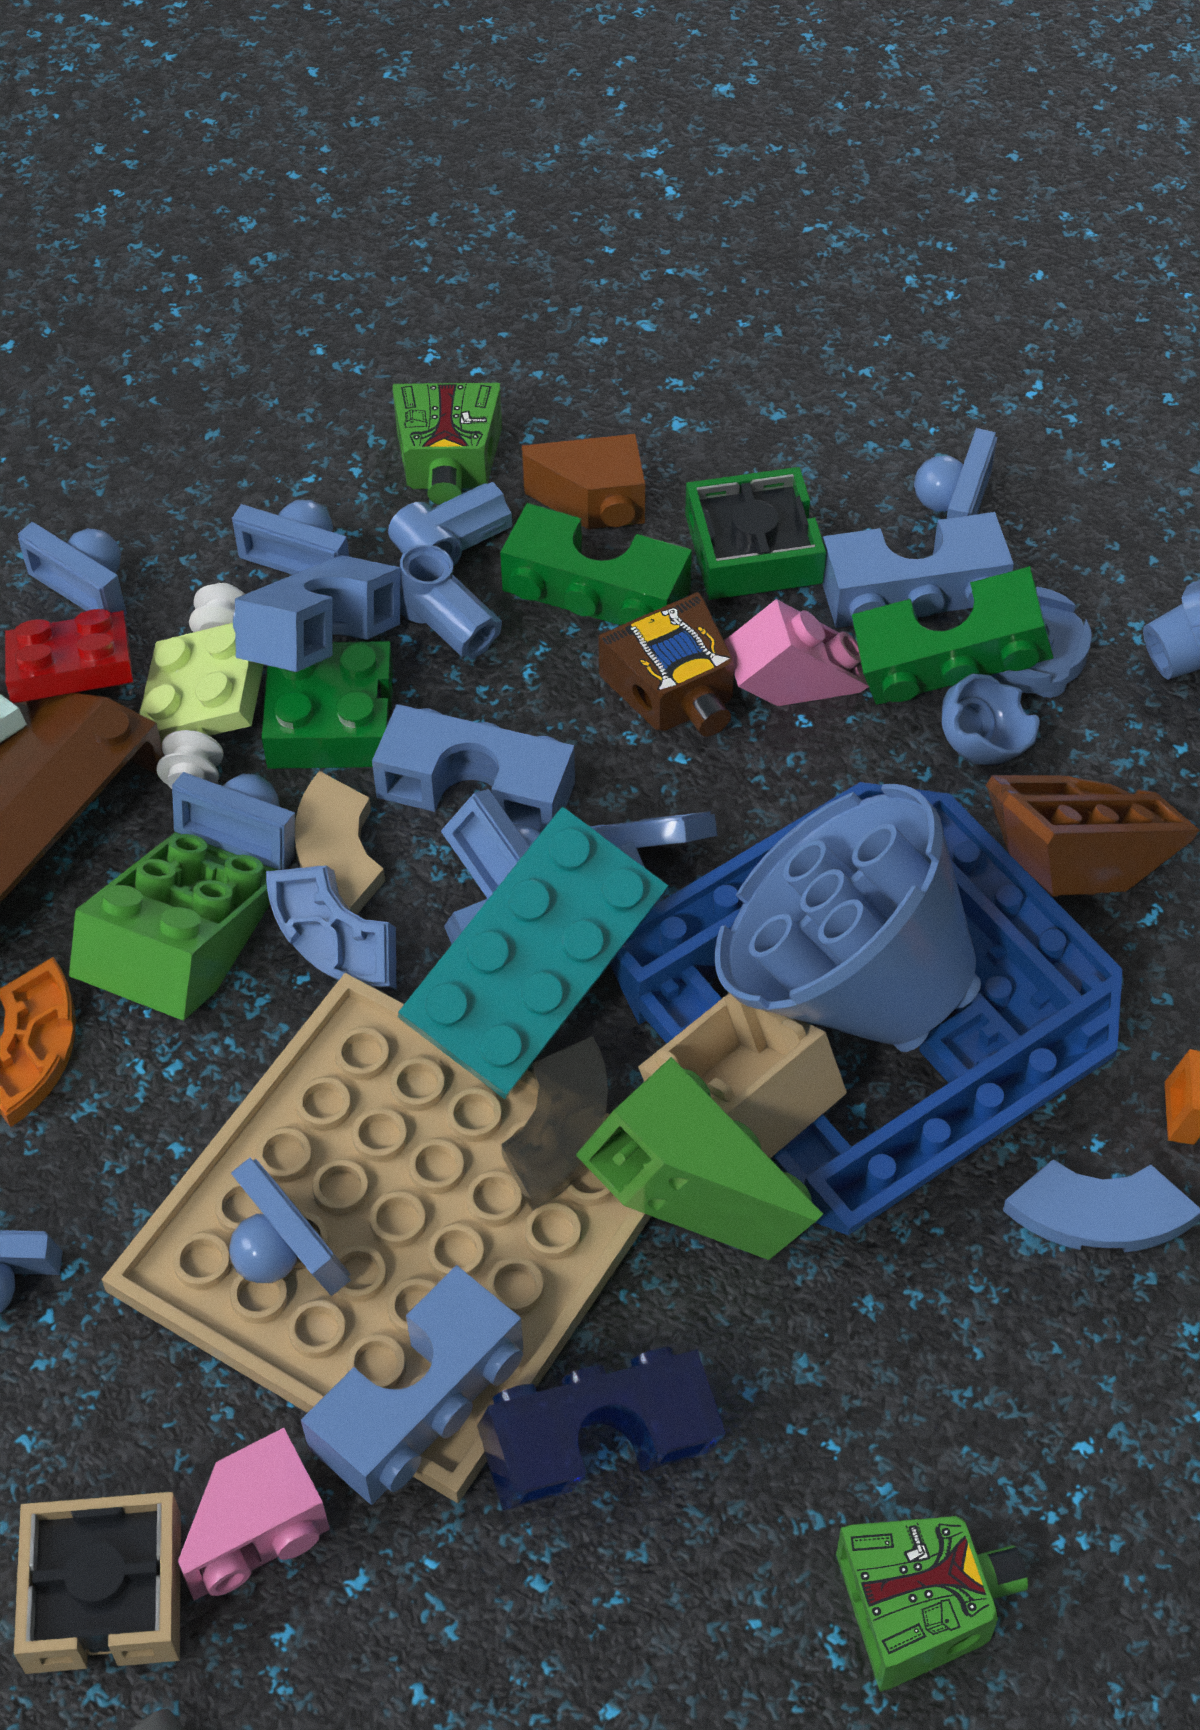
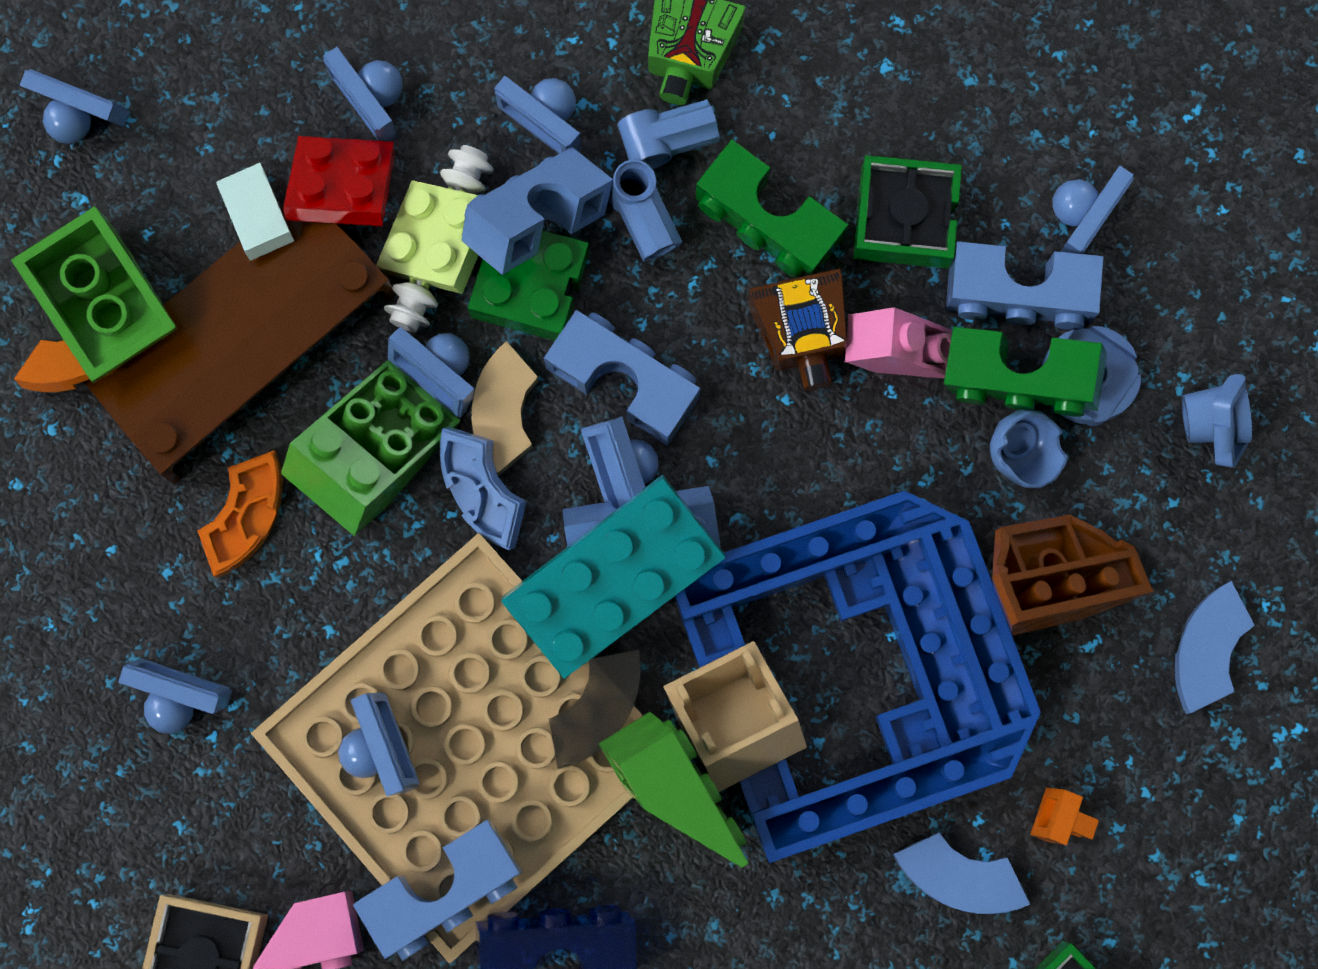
camera: 15 degrees right, 25 degrees up
(588, 479) = (793, 118): dark orange slope -> none
(660, 830) = (745, 475): medium blue tile -> none
(855, 923) = (841, 636): medium blue cone -> none

